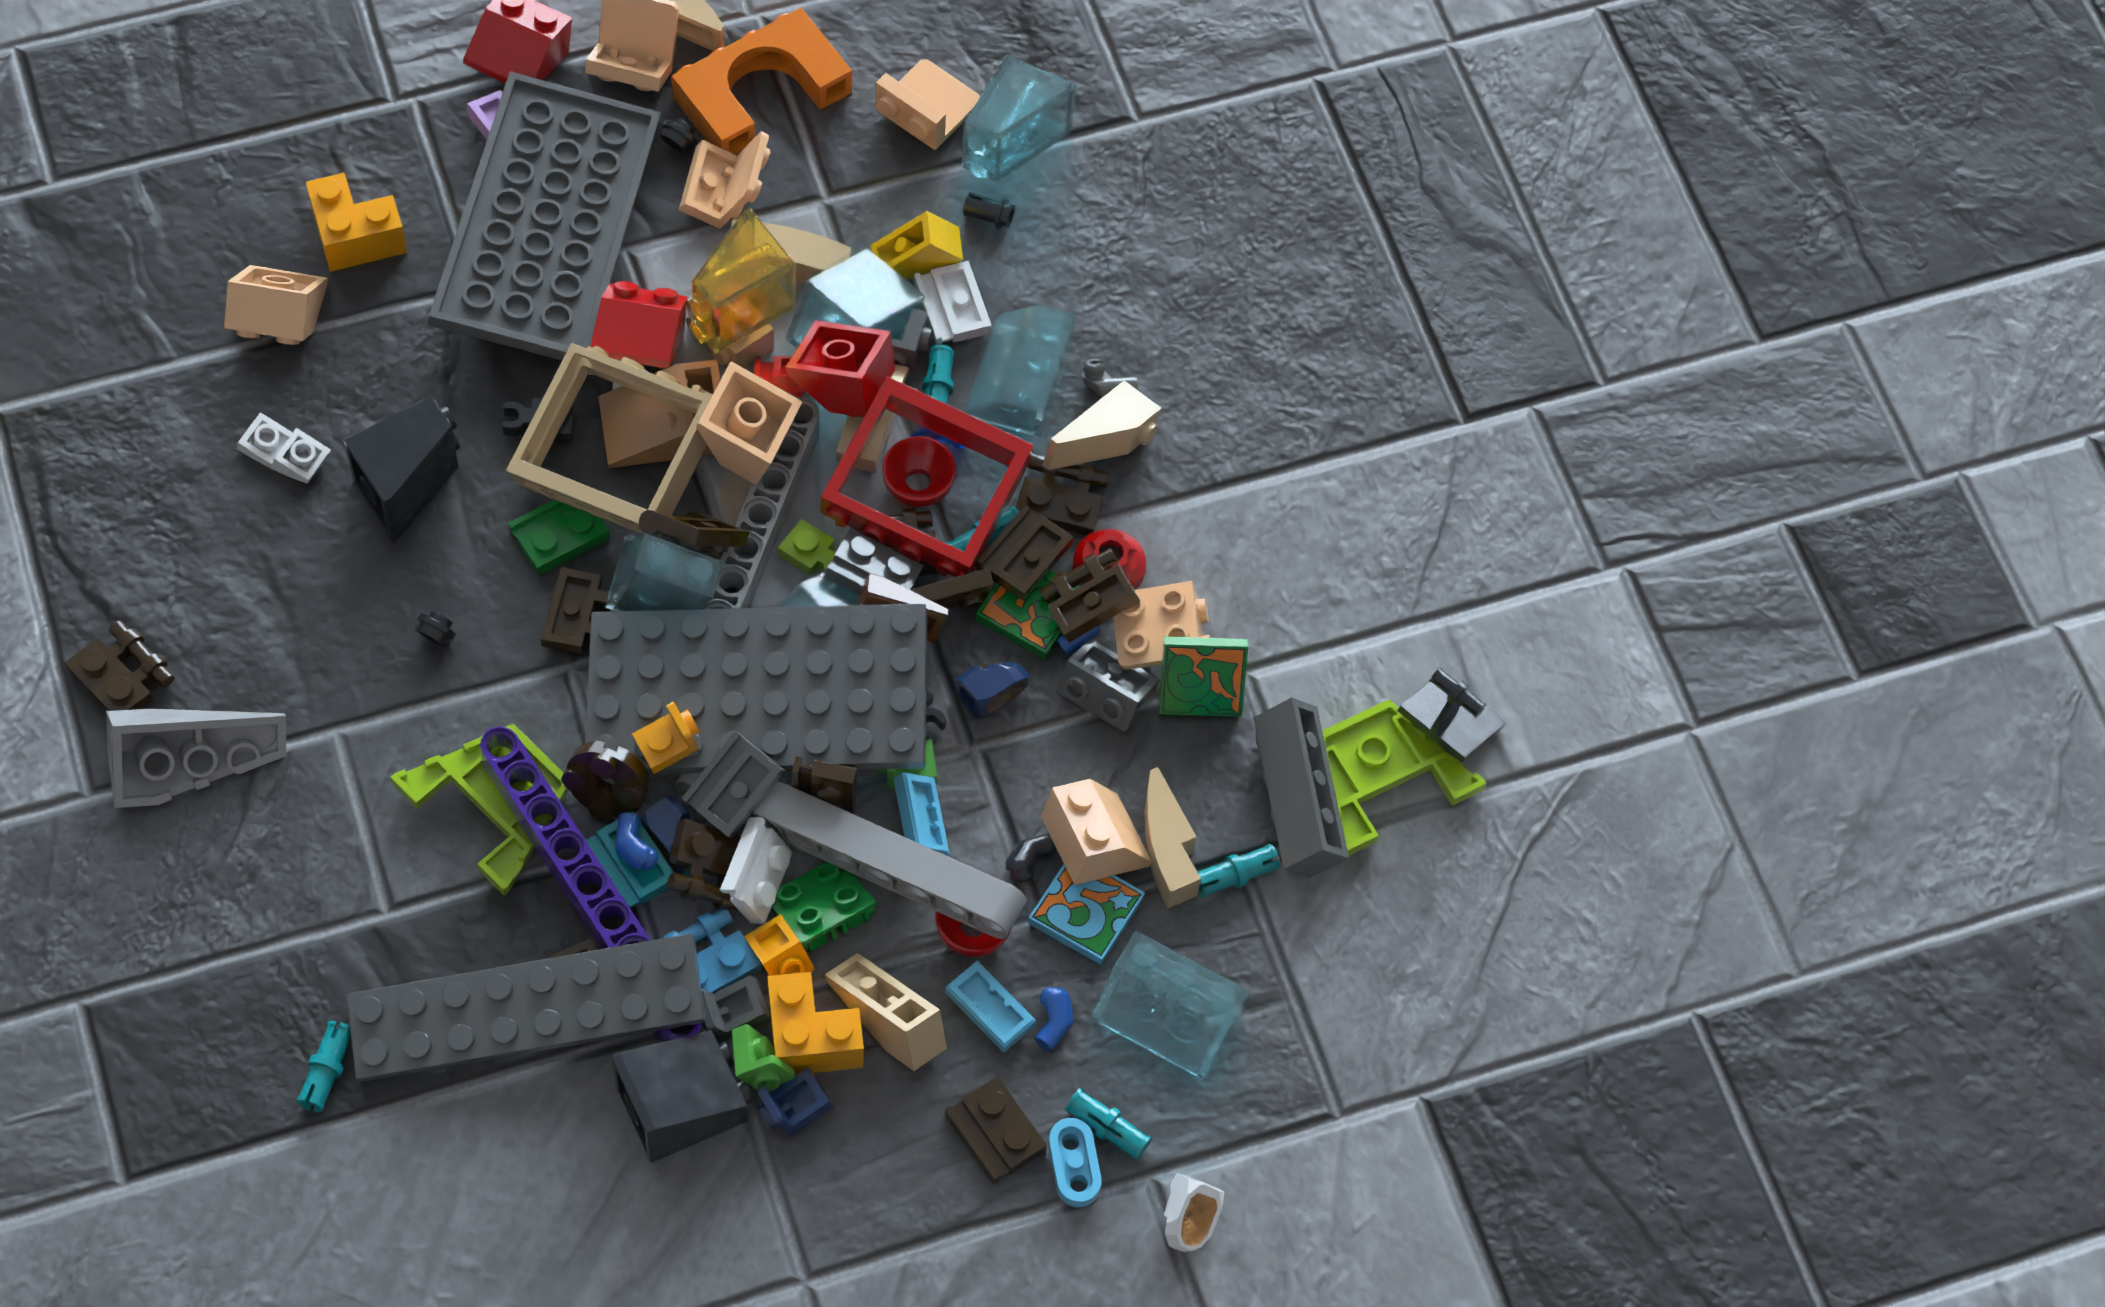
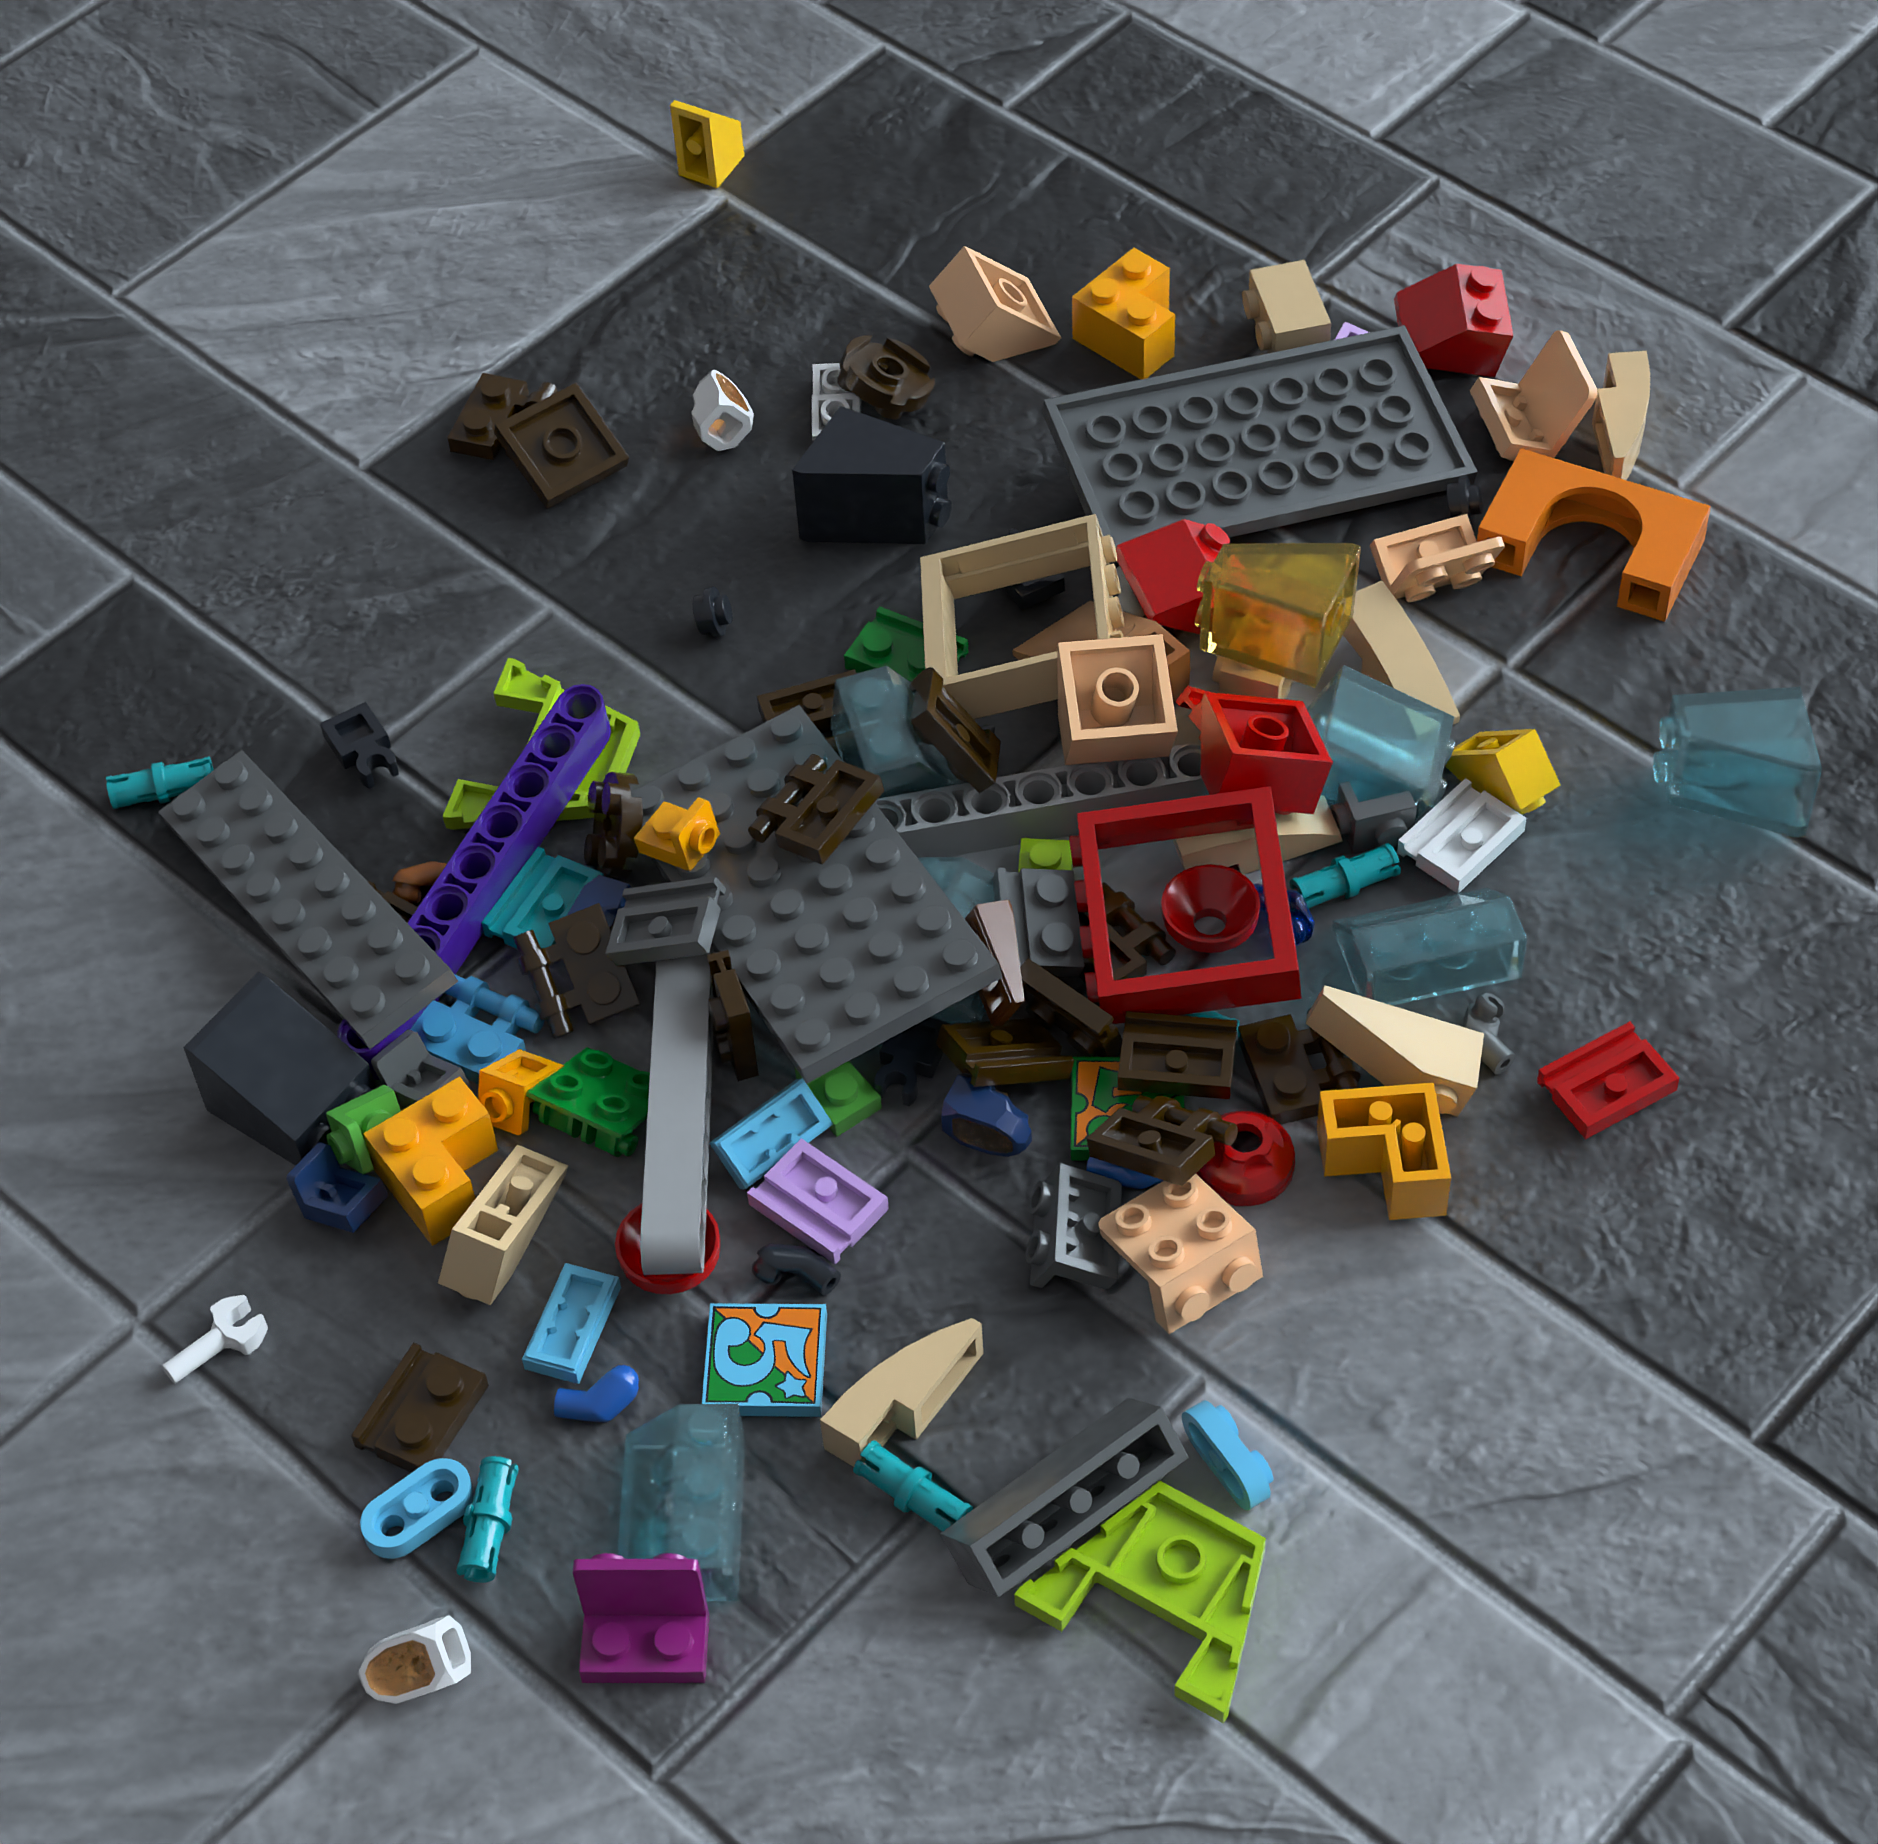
camera: 70 degrees right, 10 degrees down
(174, 751) = (439, 495): light grey wedge -> none
(195, 644) = (561, 445): none -> dark brown plate
(239, 524) = (721, 412): none -> white rock
(312, 406) = (886, 375): none -> dark brown plate
(383, 913) = (360, 741): none -> black plate
(433, 130) = (1286, 307): none -> tan brick
(546, 926) = (411, 879): none -> dark orange arm
(631, 847) = (553, 882): blue arm -> none
(728, 636) = (825, 815): none -> dark brown plate
(756, 870) = (595, 1010): white plate -> none
(857, 1230) = (221, 1336): none -> white bar
(925, 102) = (1695, 667): light nougat bracket -> none
(958, 648) = (1004, 1054): none -> dark brown plate
(989, 209) = (1620, 817): black pin -> none
(990, 816) = (818, 1201): none -> lavender plate
(1092, 832) = (858, 1304): light nougat slope -> none
(1167, 469) = (1389, 1133): none -> light orange brick
(1187, 340) = (1608, 1080): none -> red plate
(1203, 676) = (1140, 1311): tile -> none
(1243, 1068) = (642, 1619): none -> magenta bracket
(1320, 689) = (1217, 1442): none -> medium azure plate
(1451, 715) = (1292, 1621): plate -> none

